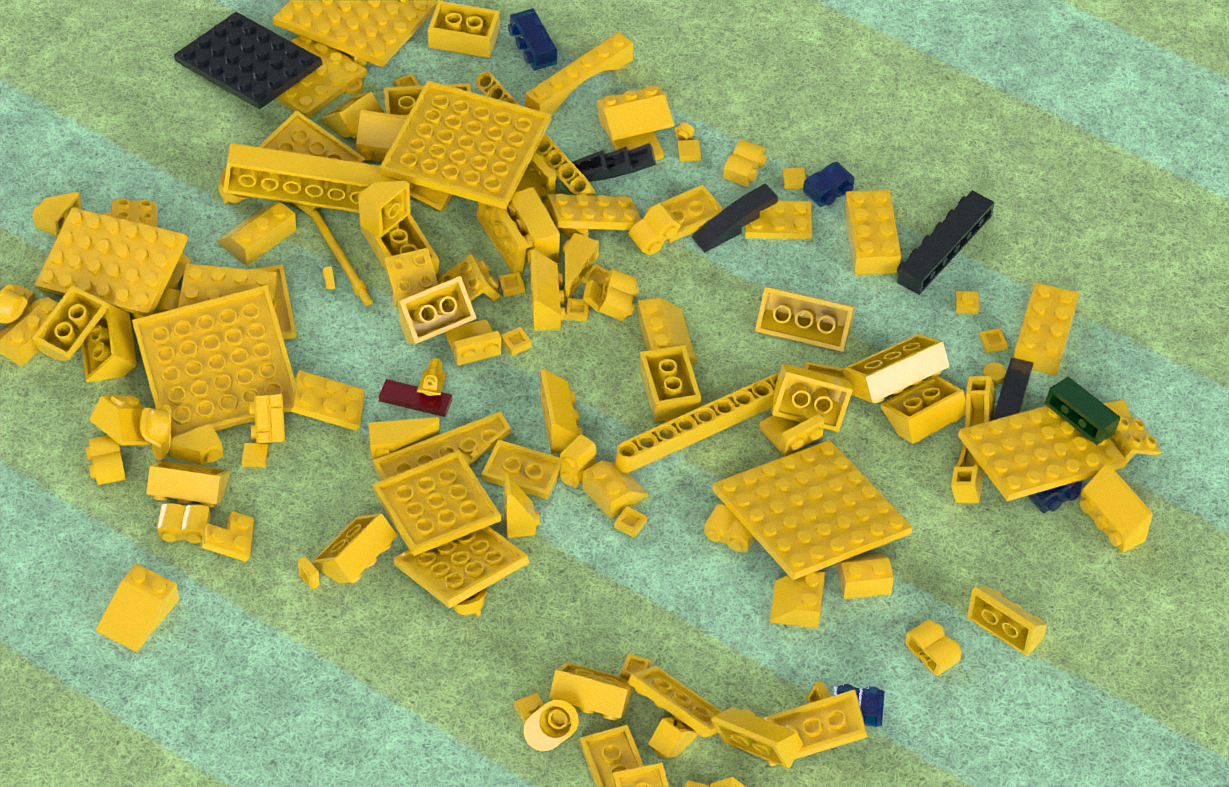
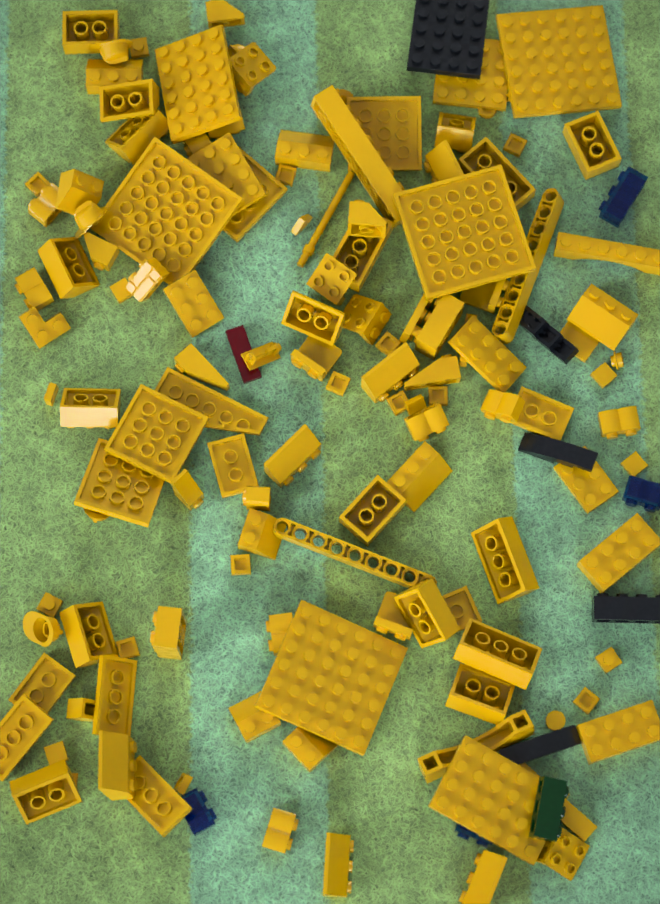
camera: 55 degrees right, 25 degrees up
(74, 459) = (36, 183): none -> yellow tile
(265, 259) = (286, 174): none -> yellow tile
(659, 598) = (169, 632): none -> yellow brick

